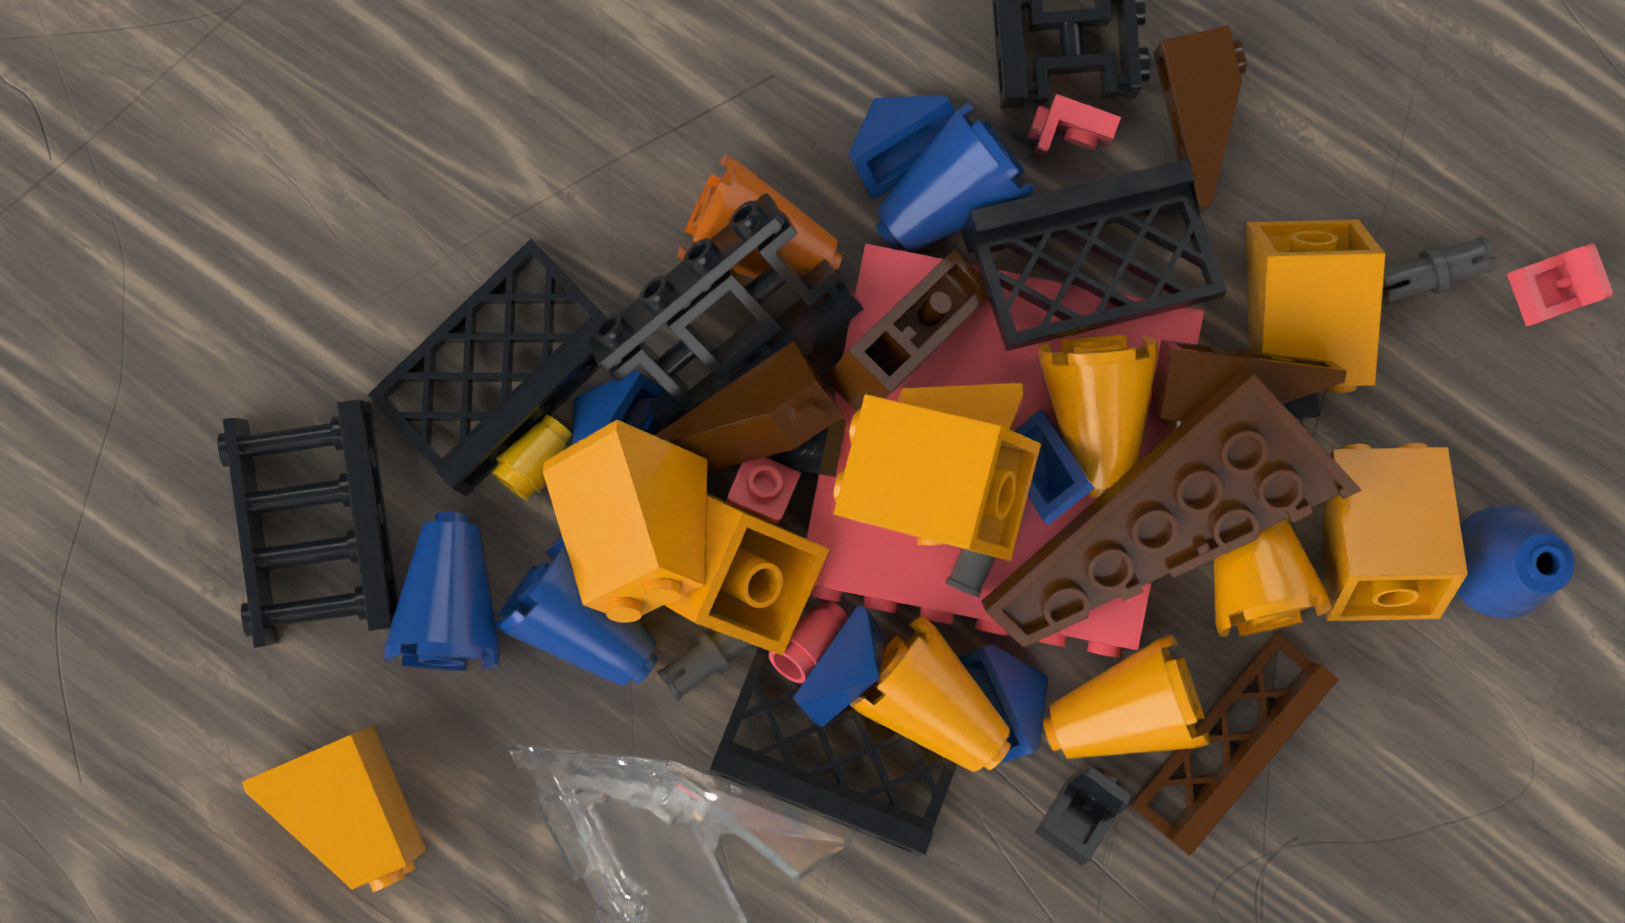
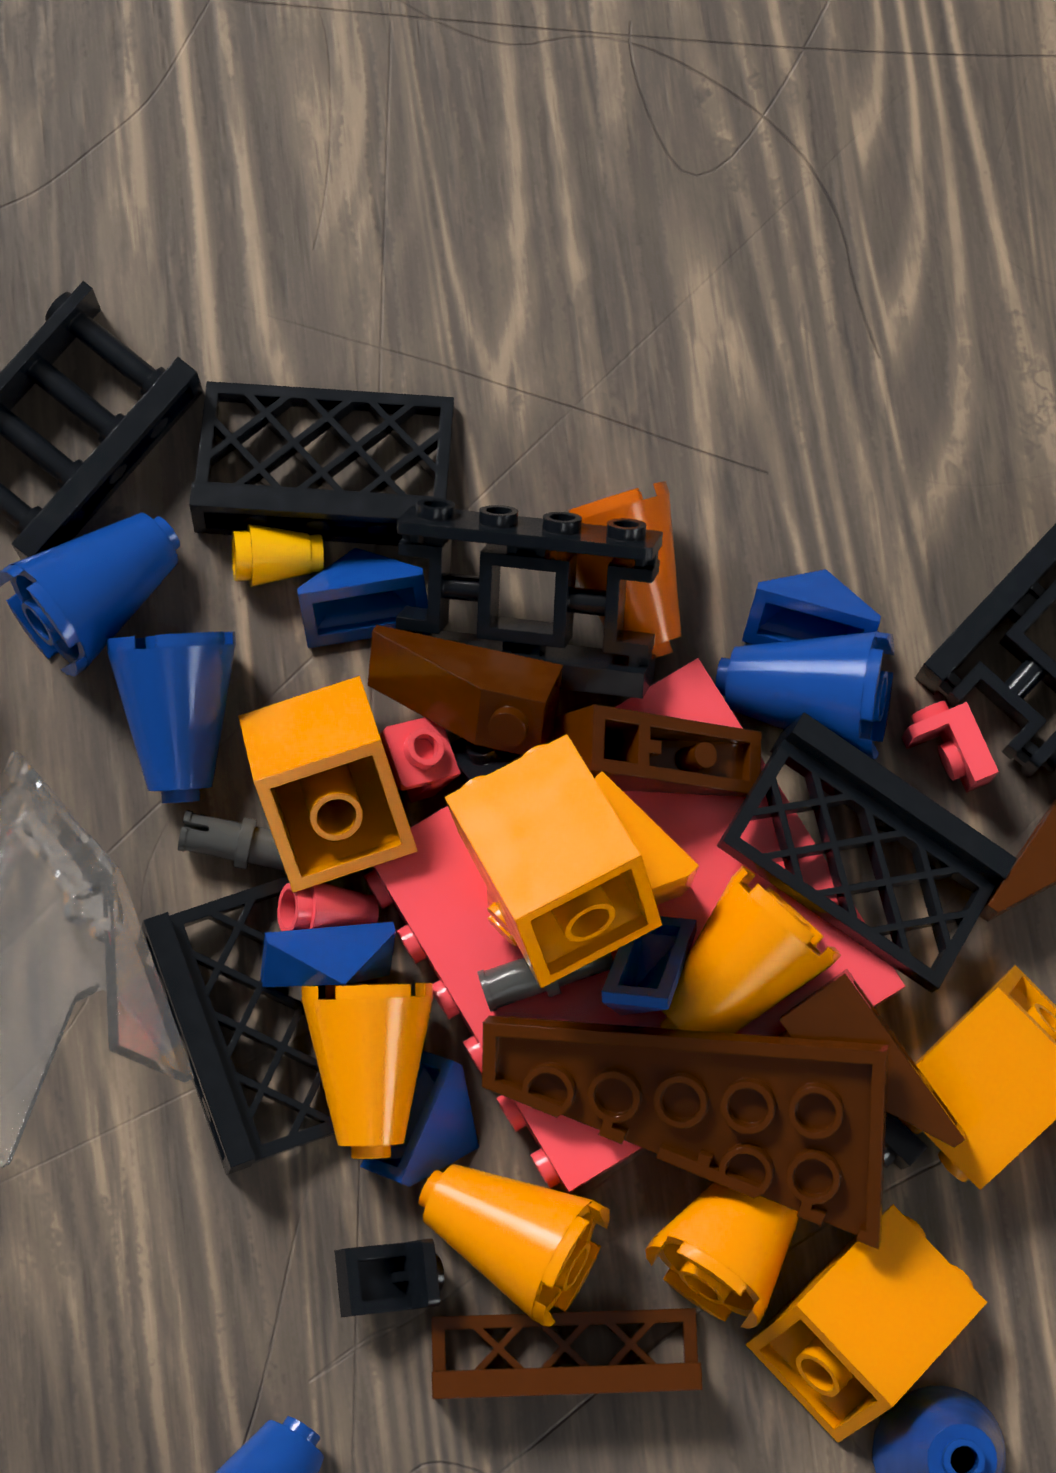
camera: 45 degrees right, 10 degrees down
(630, 519) = (294, 662): light orange slope -> none

